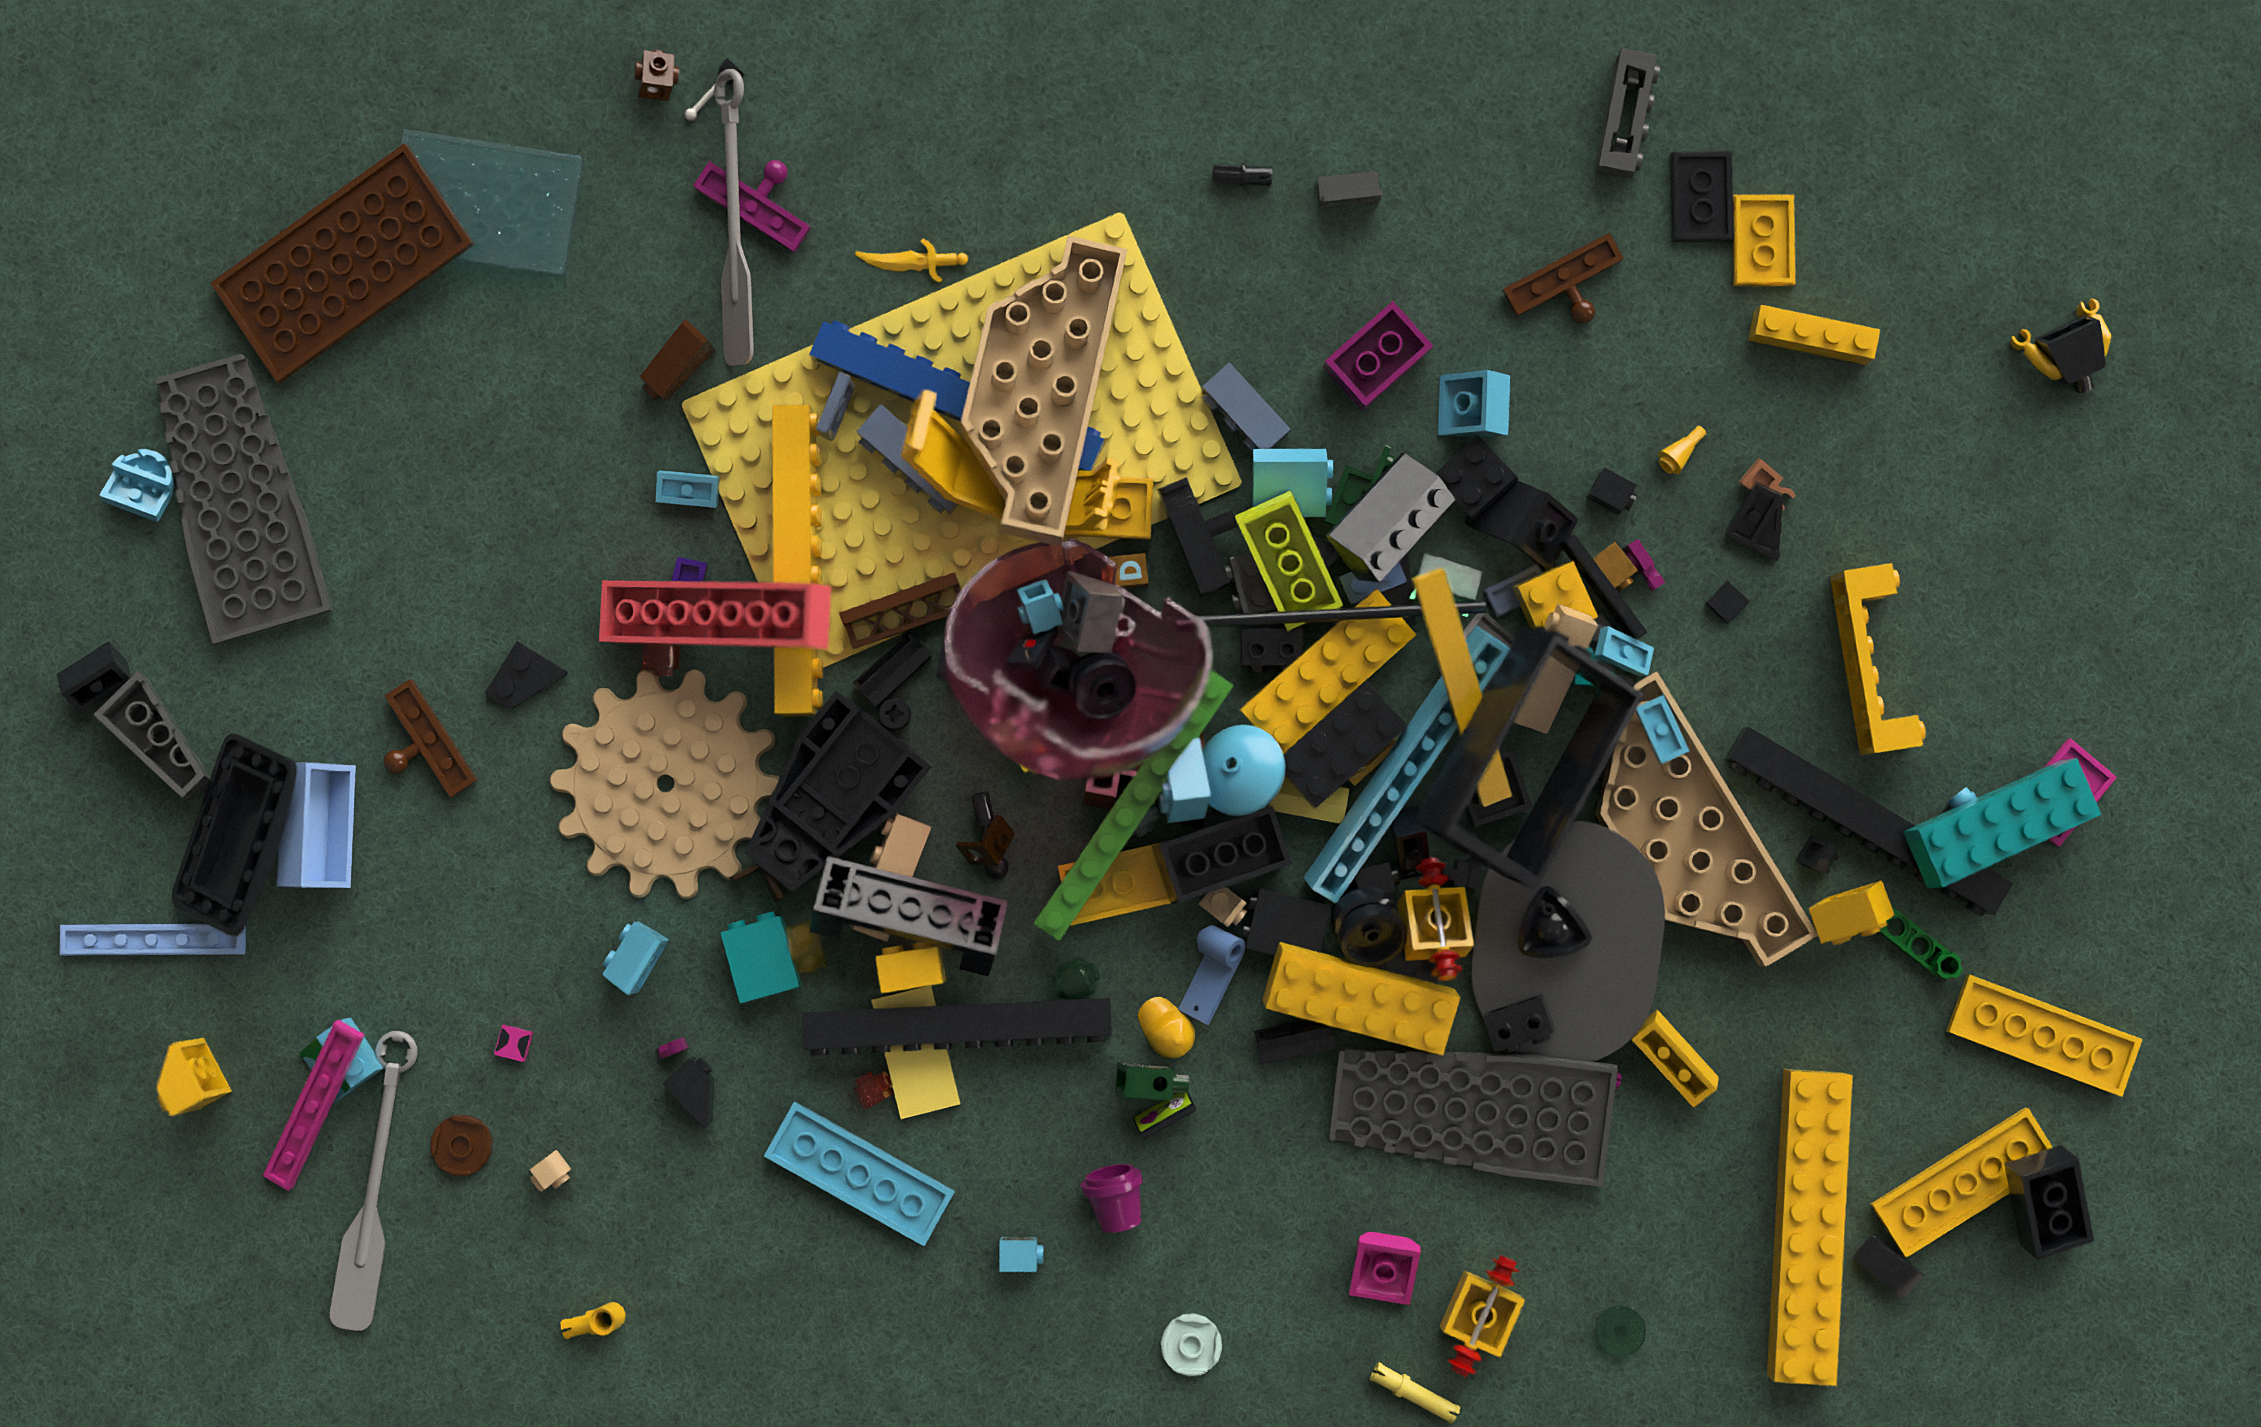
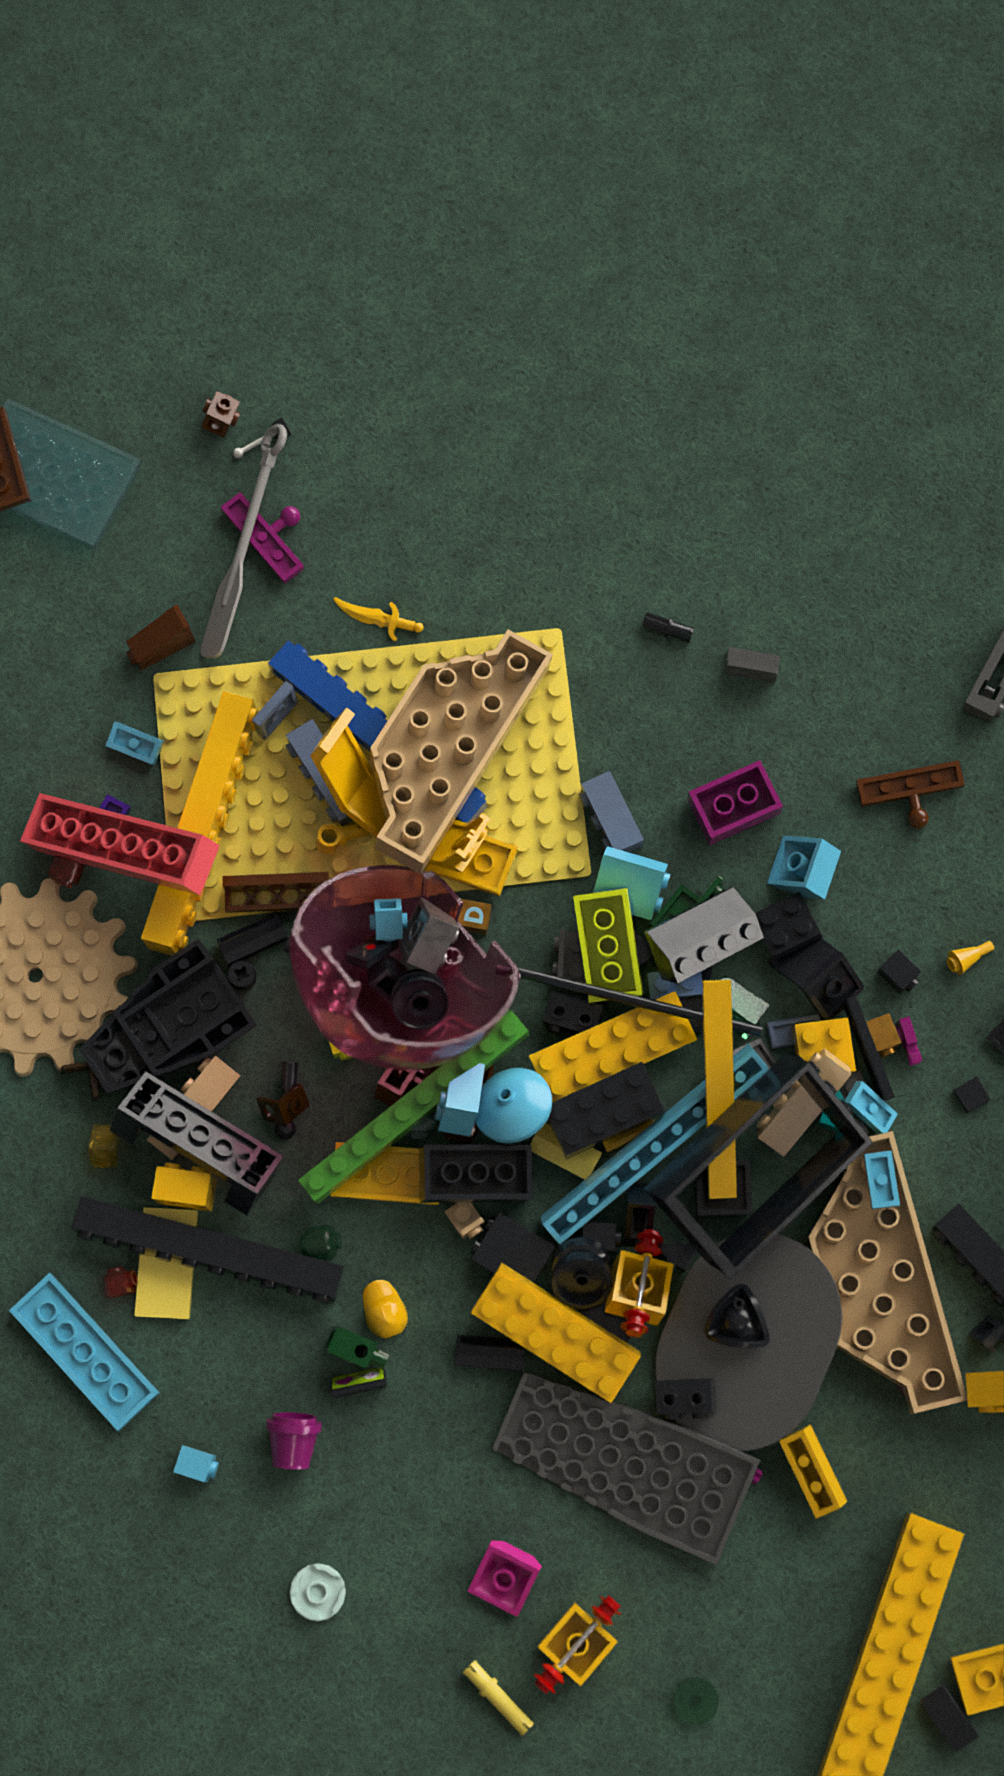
camera: 25 degrees right, 10 degrees down
(760, 957) = (63, 1142): teal brick -> none
(953, 524) = (340, 834): none -> yellow pin
(1196, 535) = (538, 902): black piece -> none
(1220, 960) = (450, 1262): medium blue door -> none

